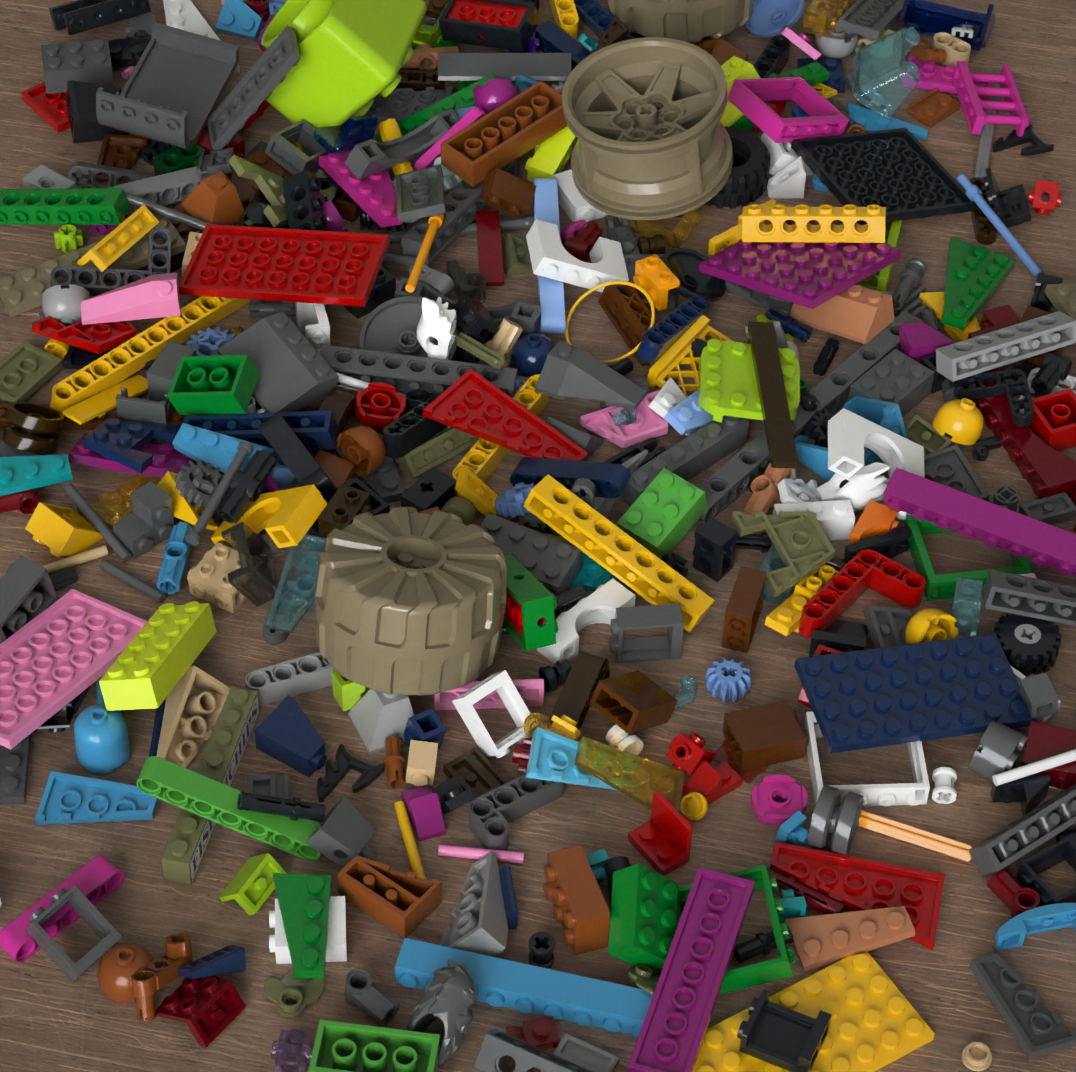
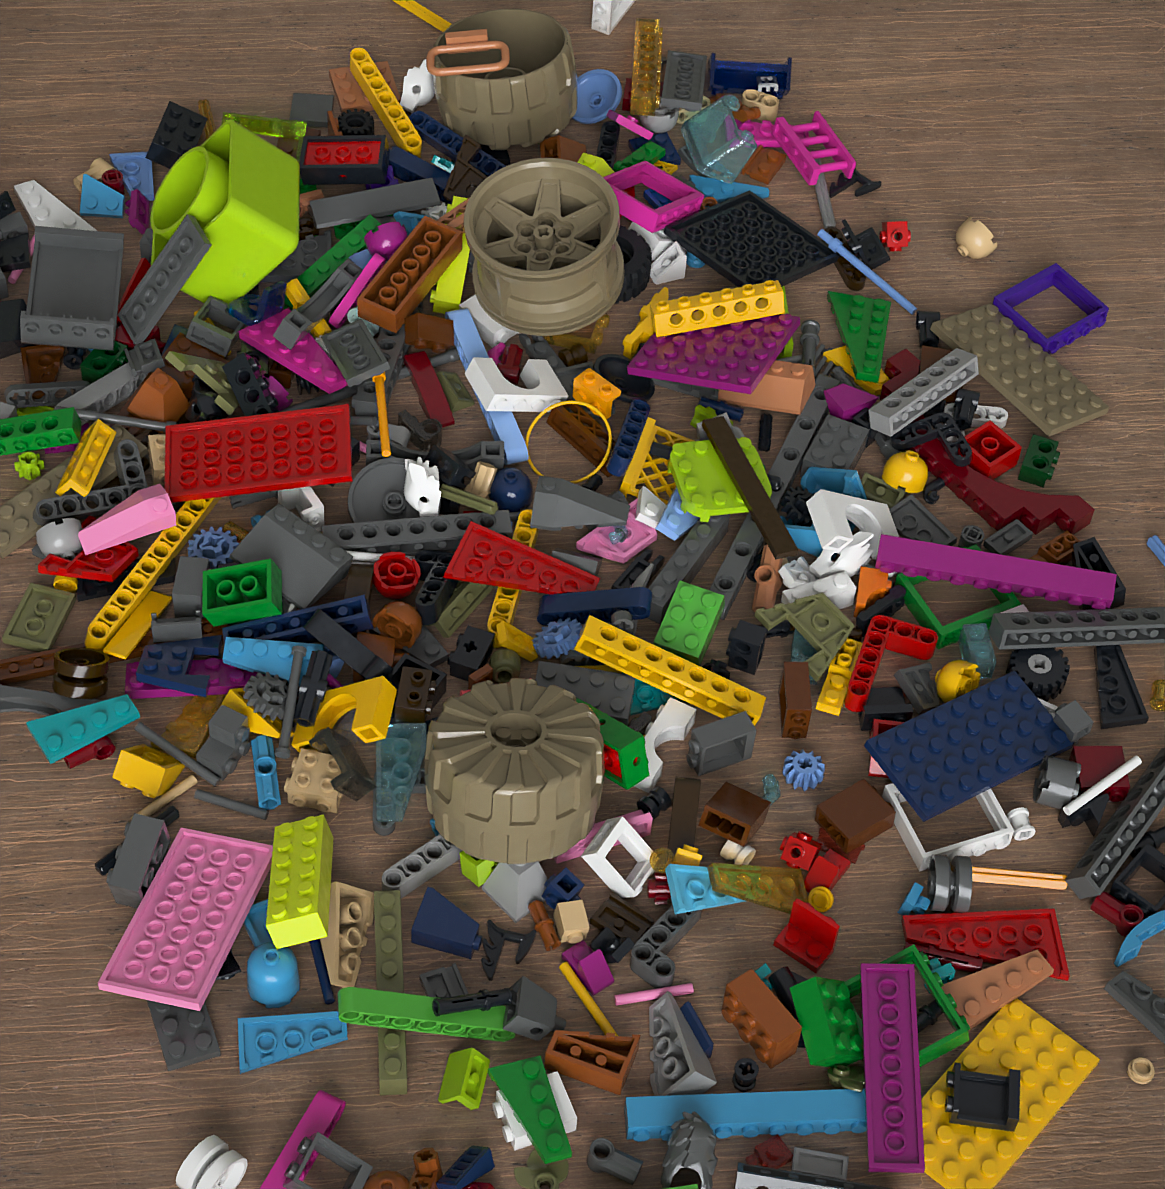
camera: 20 degrees left, 5 degrees up
(778, 786) = (884, 886): dark pink plate -> none

